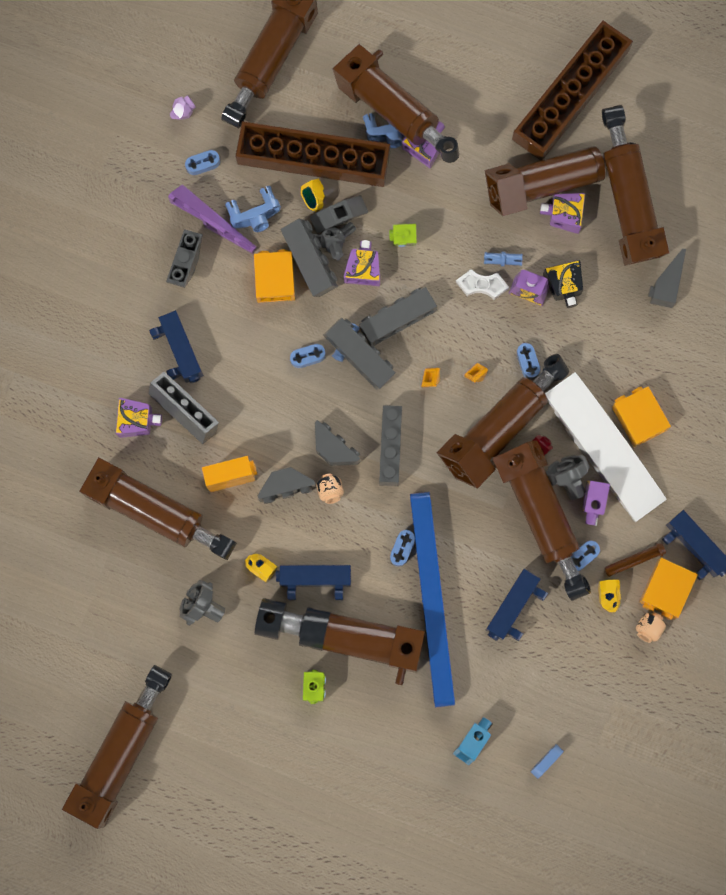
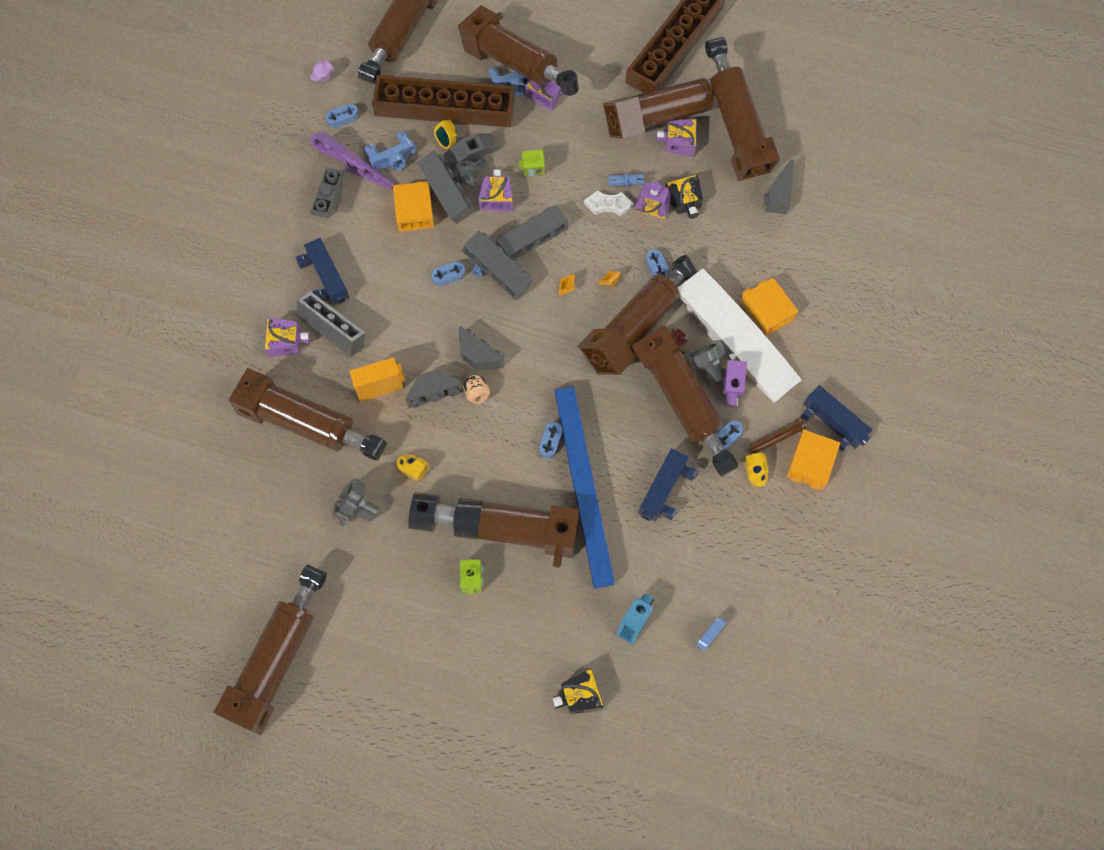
camera: 10 degrees left, 10 degrees down
(314, 576) = (465, 471): dark blue brick -> none
(390, 445) = (532, 346): dark grey brick -> none
(412, 812) = (579, 694): none -> torso
(650, 627) = (800, 496): light nougat head -> none

